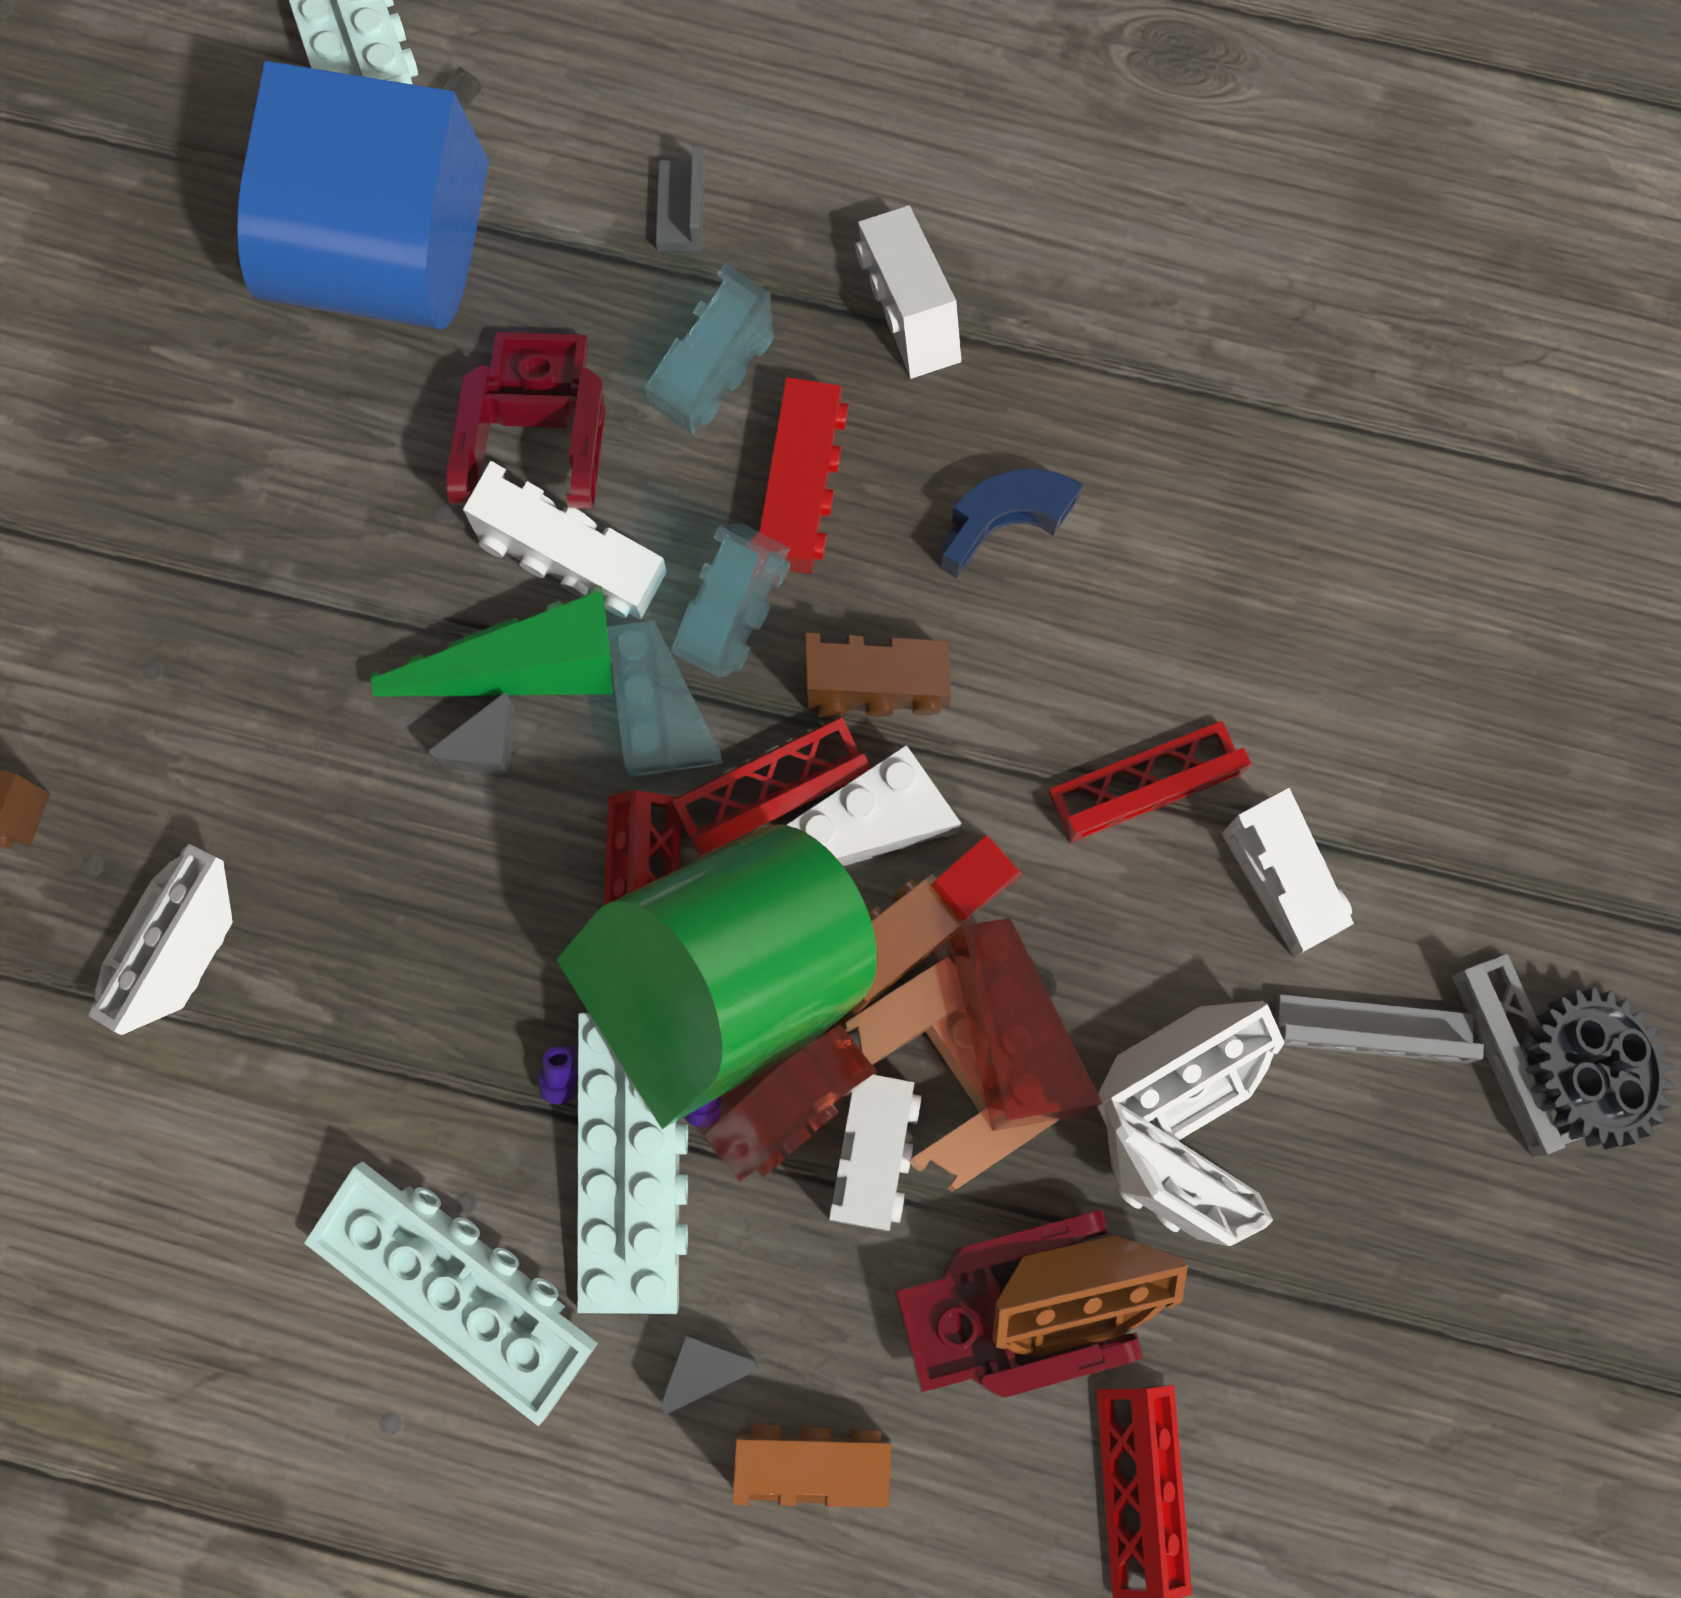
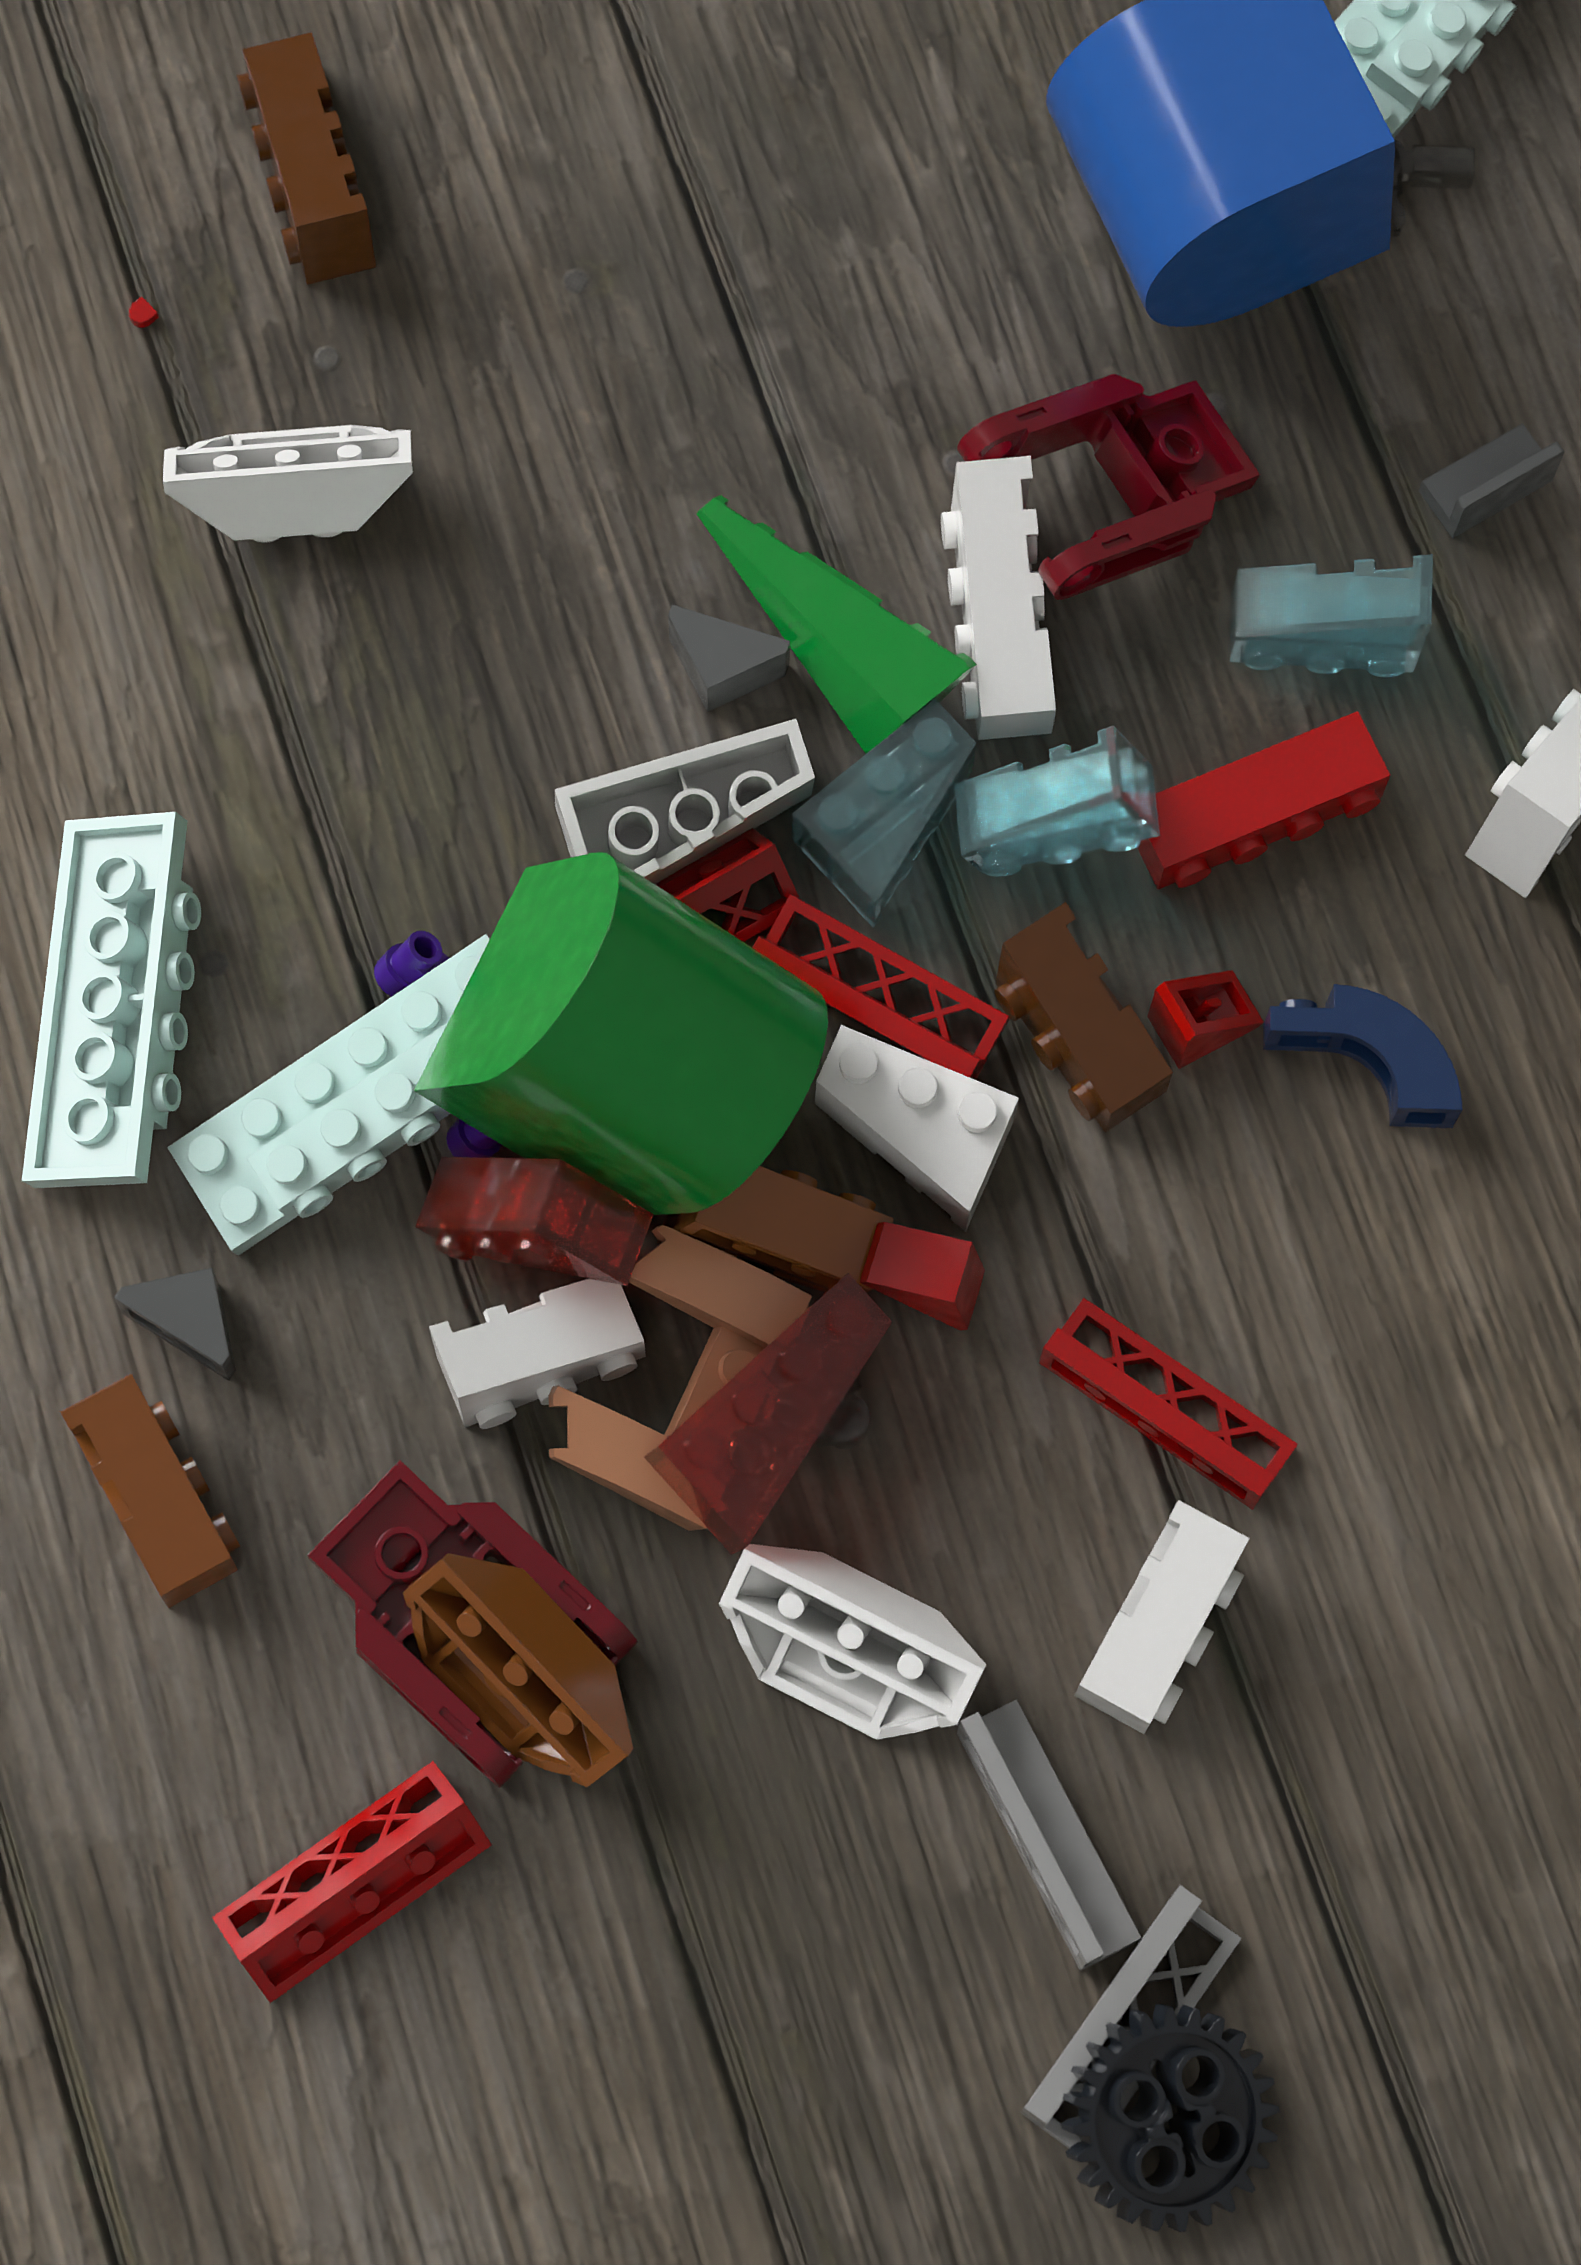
camera: 55 degrees right, 5 degrees down
(567, 848) = (687, 802): none -> white wedge
(916, 600) = (1201, 1014): none -> red slope
(1179, 1183) = (719, 1698): white wedge -> none

